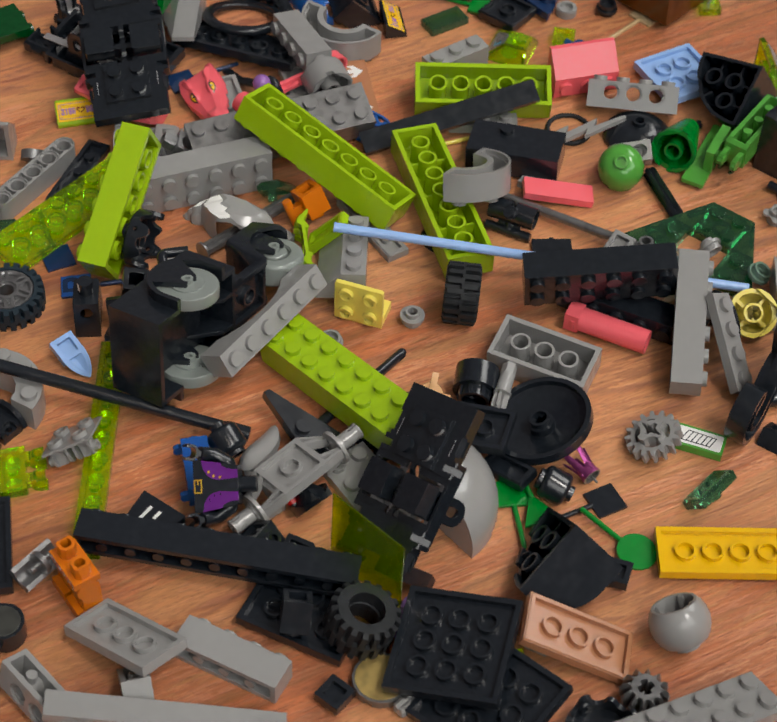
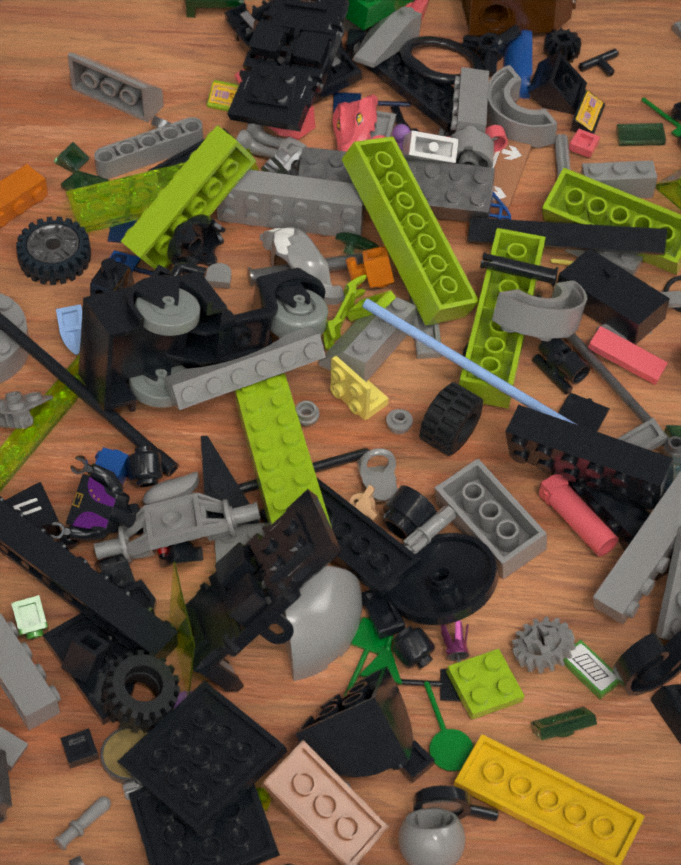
camera: 30 degrees right, 5 degrees up
(213, 607) = (30, 617): none -> bracket
(299, 82) = (430, 147): none -> white slope
(398, 63) = (562, 153): none -> light grey axle
(406, 43) = (584, 143): none -> coral plate
(426, 366) = (379, 477): none -> light grey piece
(436, 153) = (519, 268): none -> black pin
(627, 488) = (485, 684): none -> lime plate
(672, 583) = (453, 800): none -> black piece

